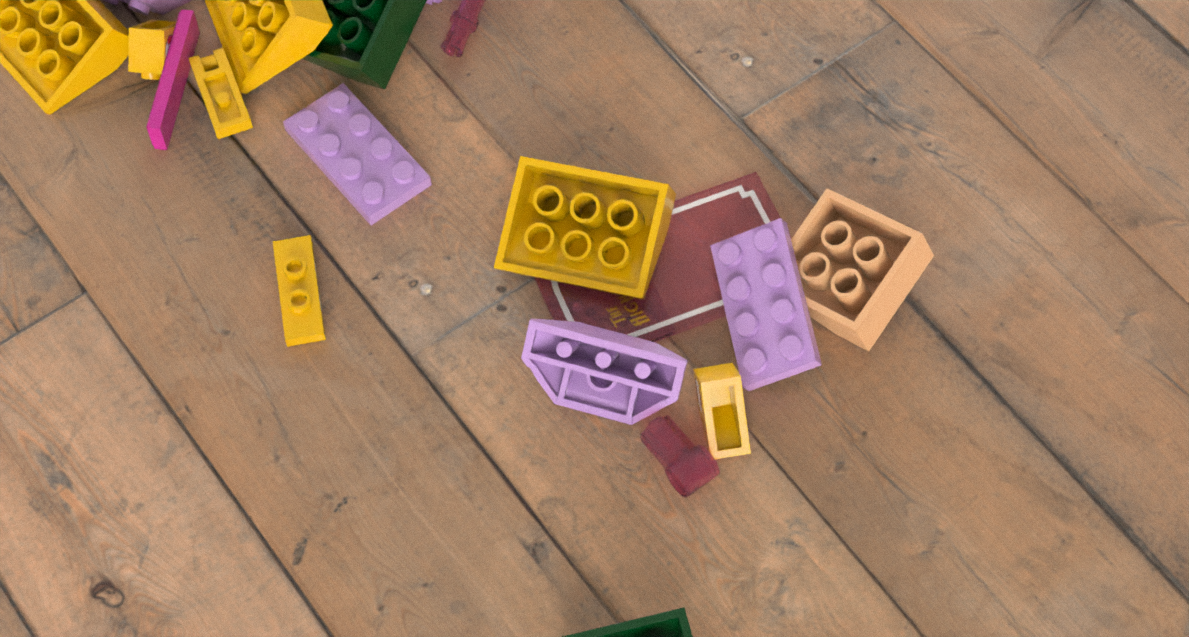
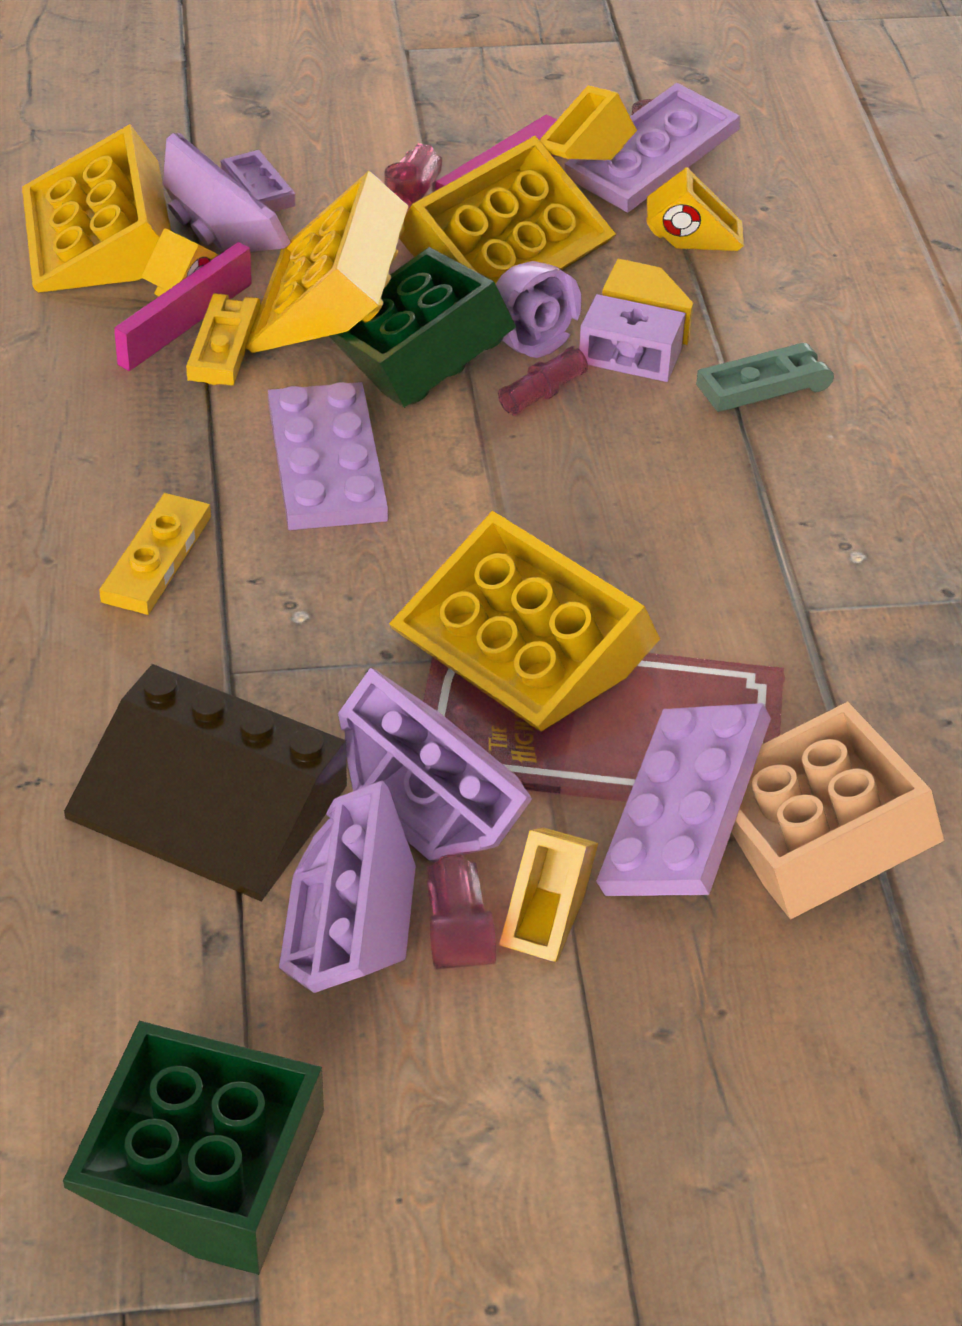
camera: 25 degrees right, 15 degrees down
(461, 446) = (209, 781): none -> dark brown slope
(609, 482) = (350, 894): none -> lavender wedge

